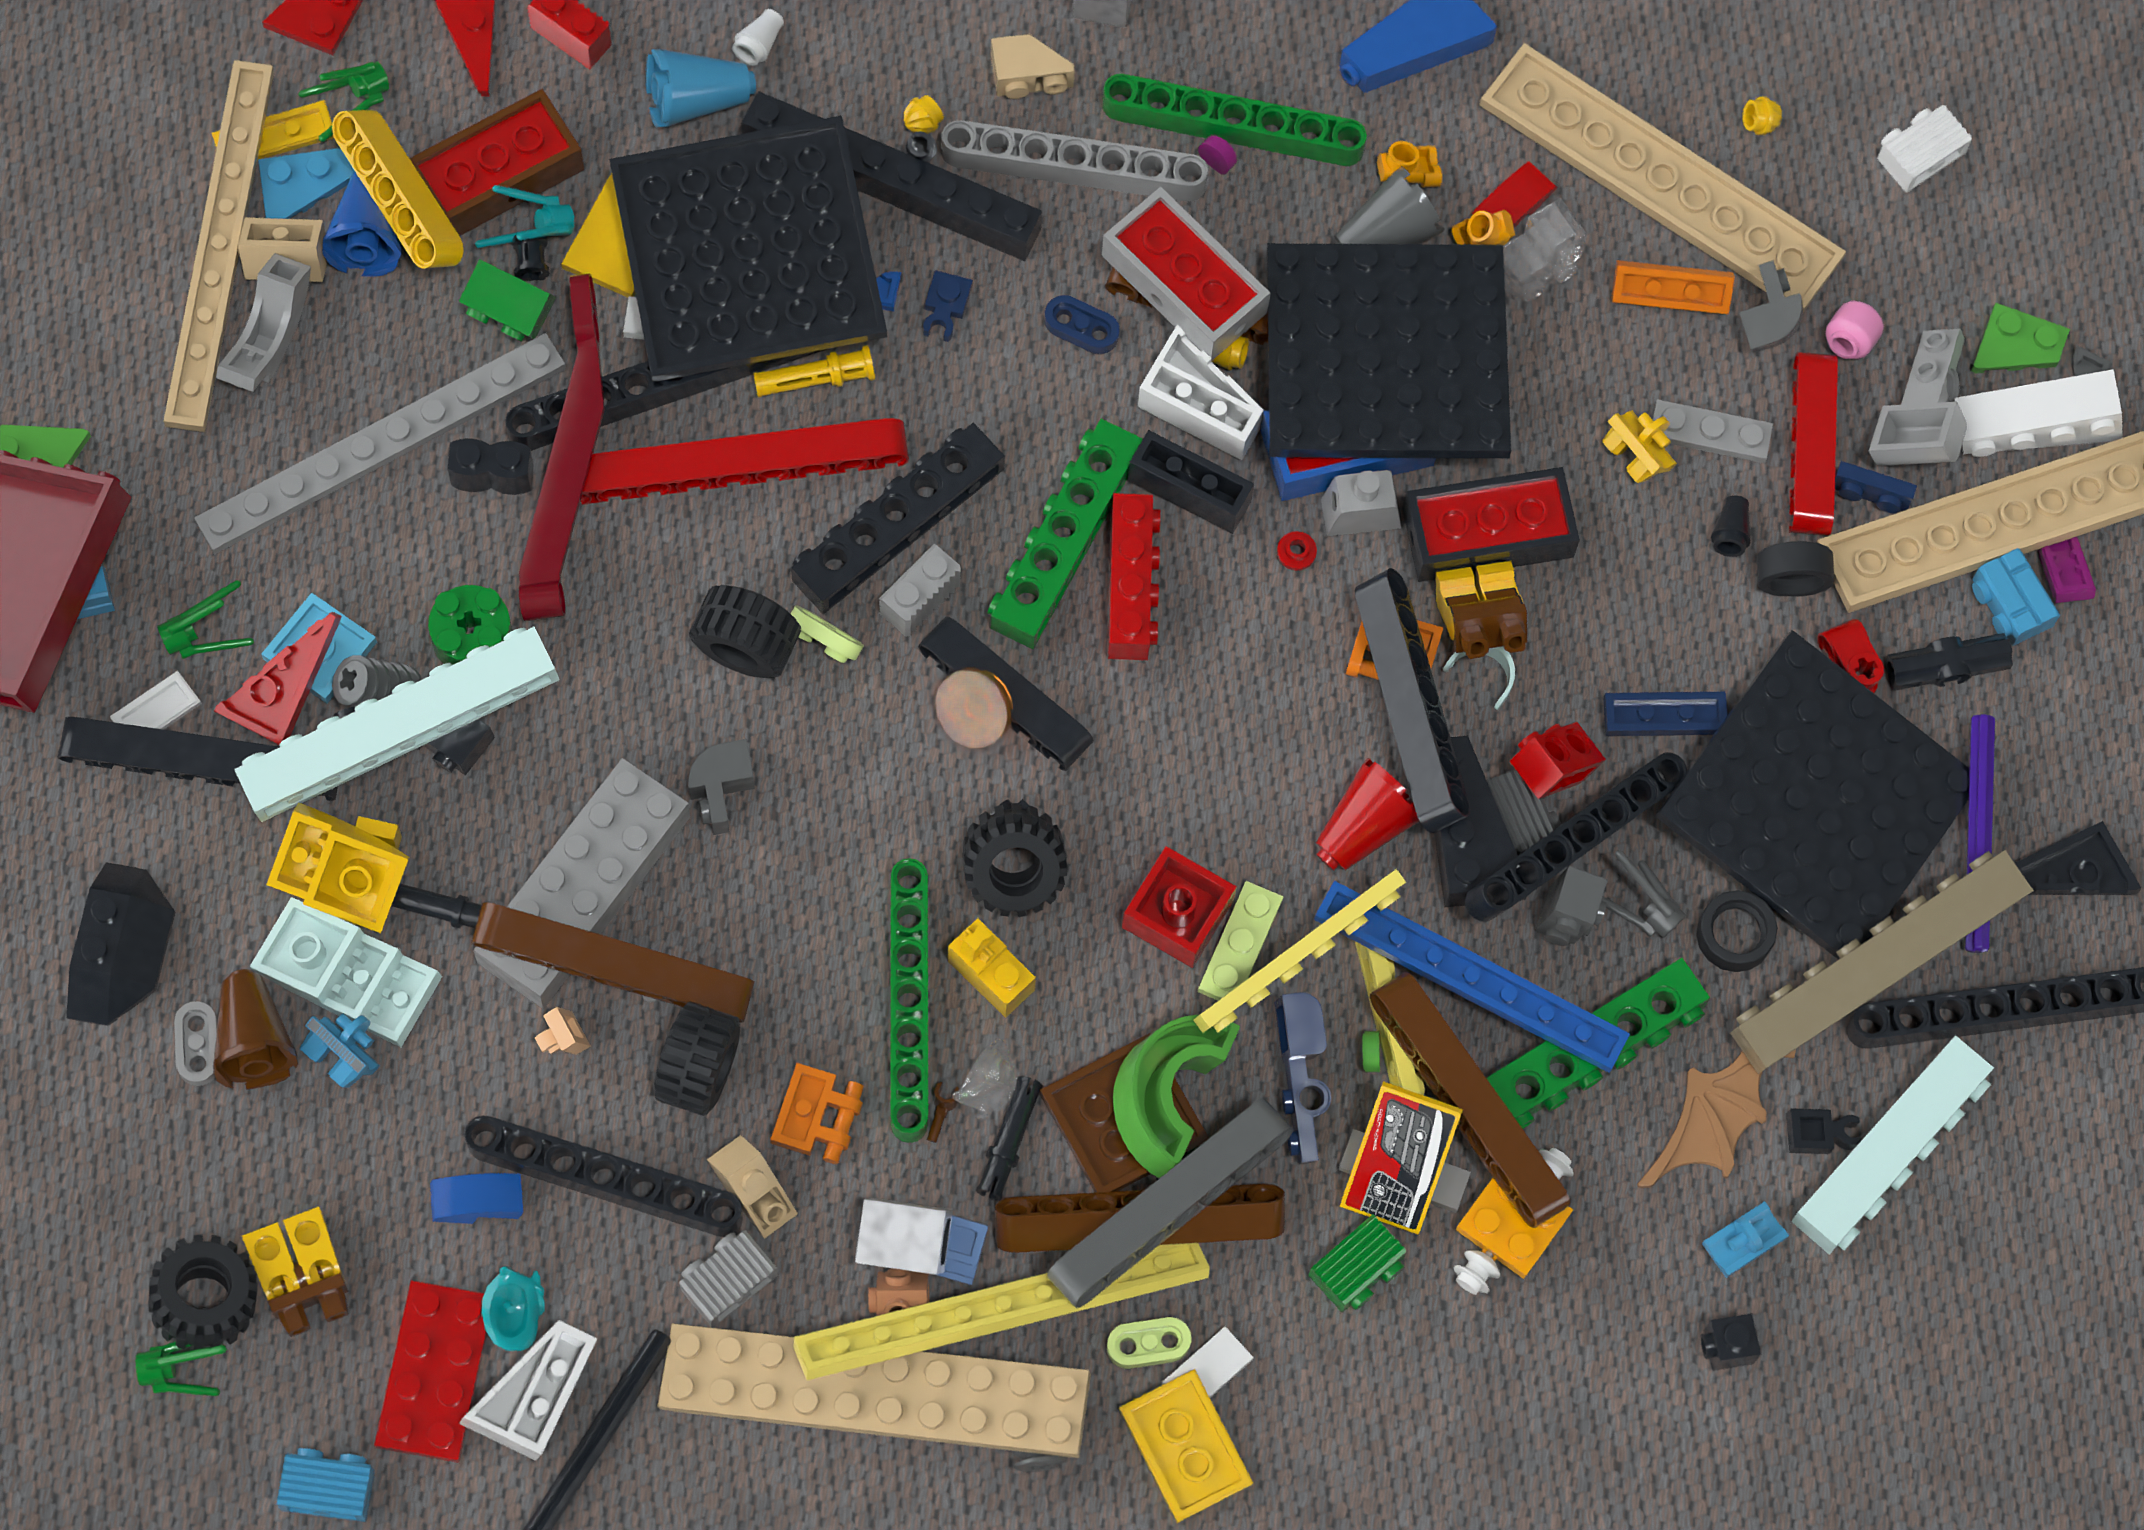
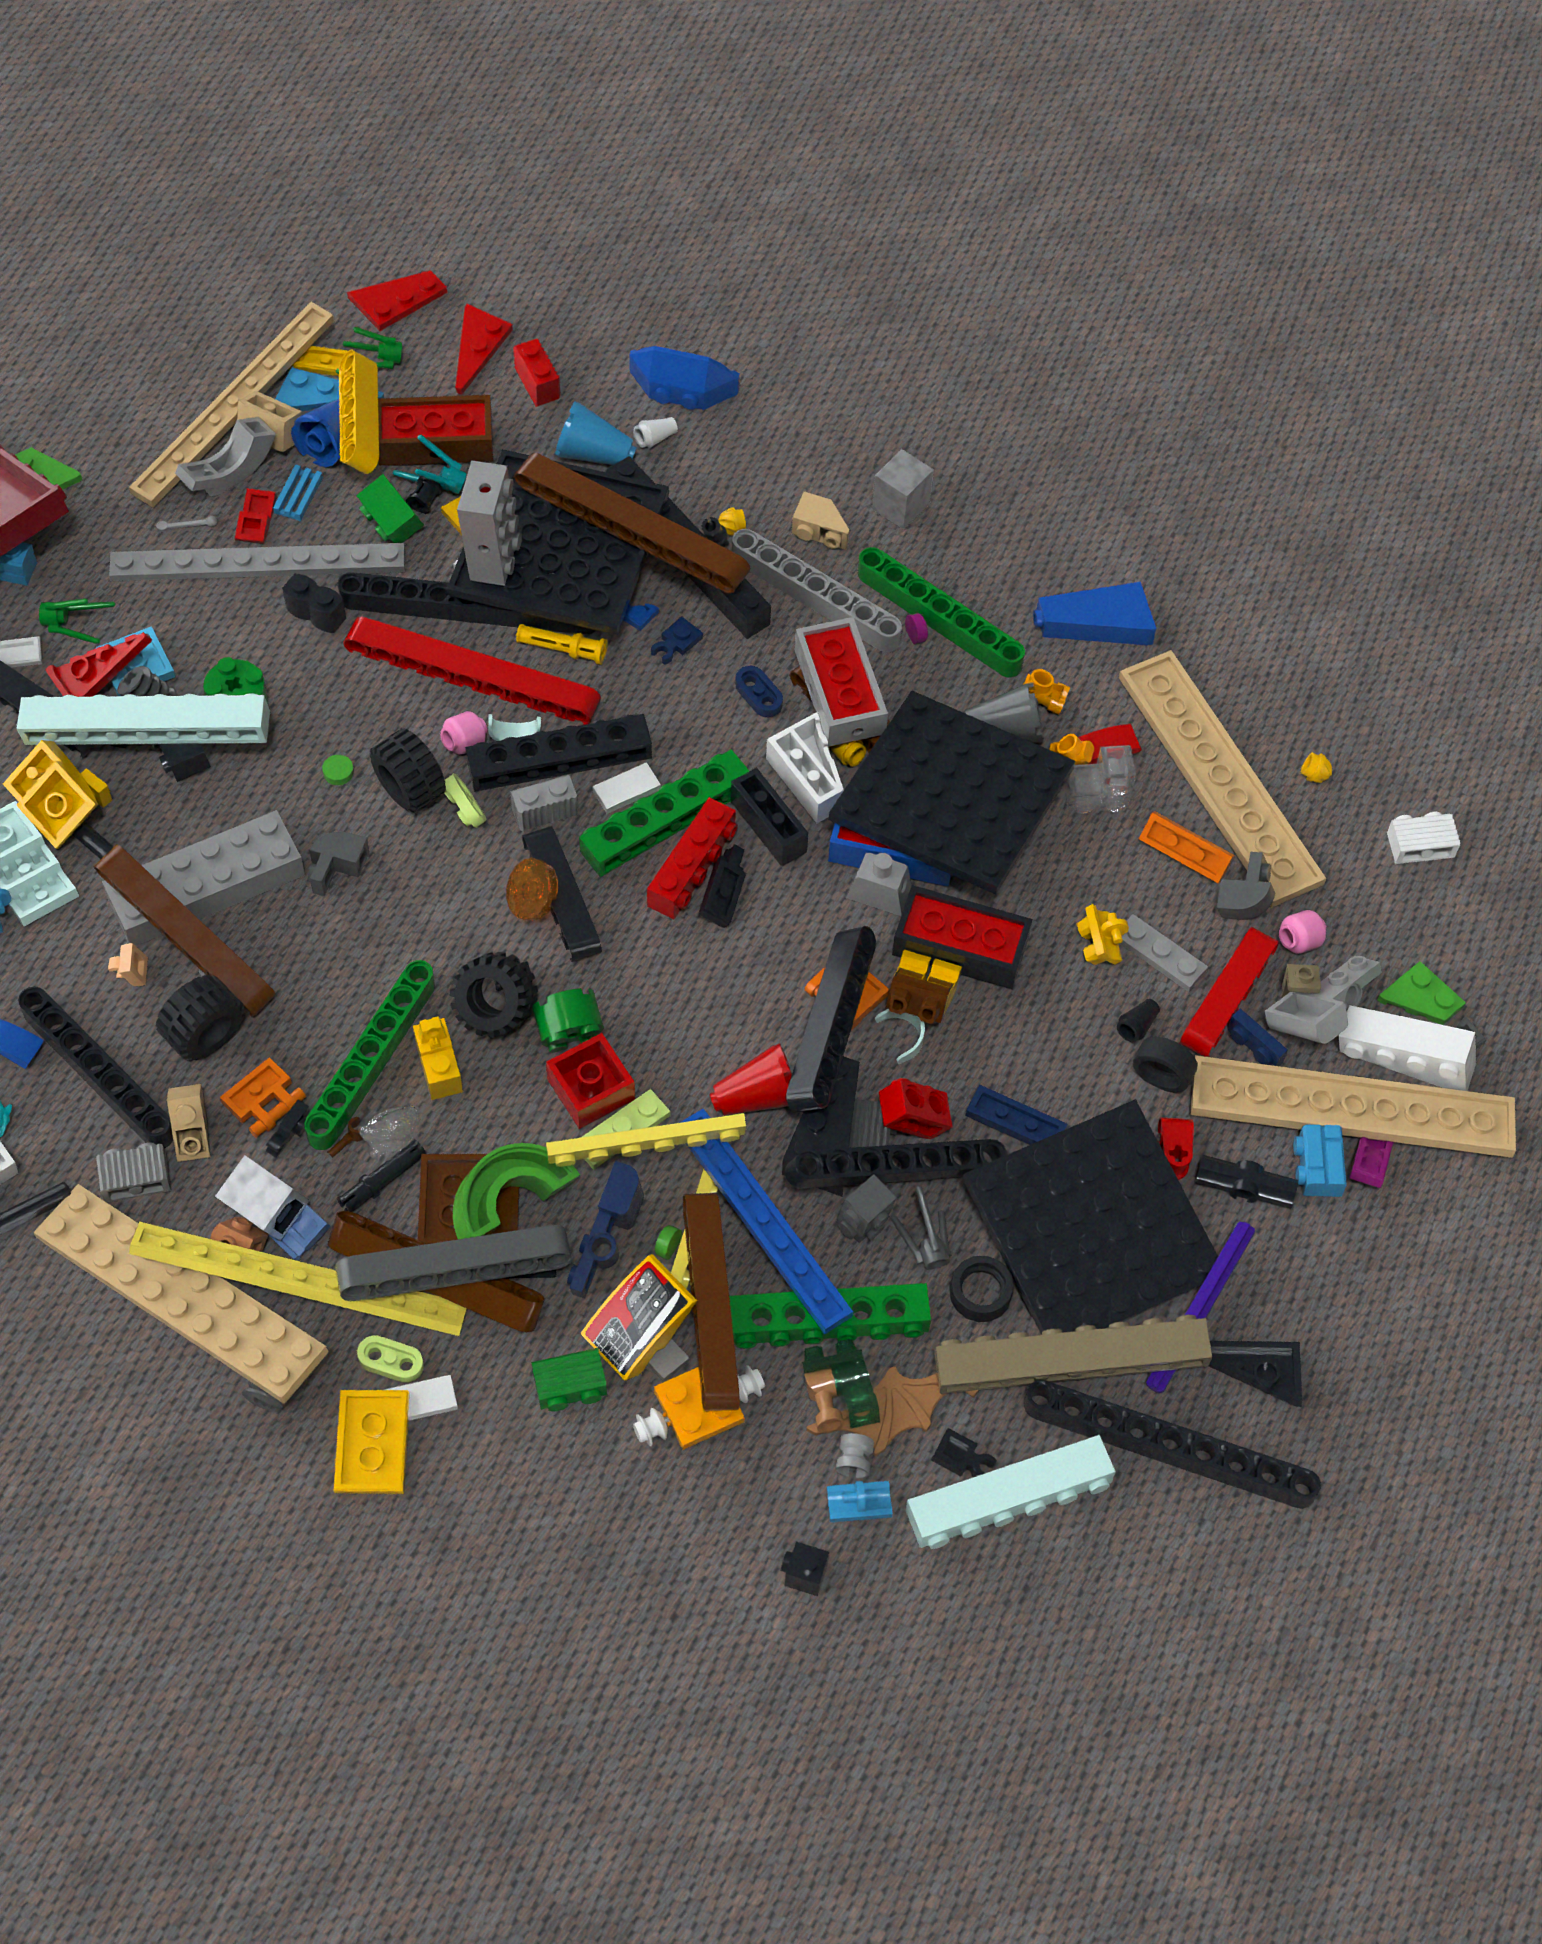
camera: 30 degrees right, 10 degrees down
(233, 450) = (162, 526): none -> light grey hinge
(340, 383) = (256, 516): none -> red slope
(368, 296) = (285, 493): none -> dark azure tile
(568, 466) = (297, 686): dark red piece -> none
(648, 666) = (337, 769): none -> bright green tile
(683, 277) = (489, 523): none -> light grey brick
(771, 547) = (462, 732): none -> bright pink head
(828, 513) = (501, 730): none -> light aqua helmet
(830, 187) = (632, 522): none -> reddish brown beam
(873, 1127) = (292, 1124): none -> black plate
(999, 523) = (626, 788): none -> white tile
(1111, 846) = (567, 1018): none -> green brick
(1186, 593) = (724, 887): none -> black hinge
(1296, 561) = (818, 903): red plate -> none
(1652, 1108) = (840, 1376): none -> clear green hips
(1708, 1185) = (855, 1454): none -> light grey wheel
(1887, 394) = (1301, 979): none -> dark tan bracket

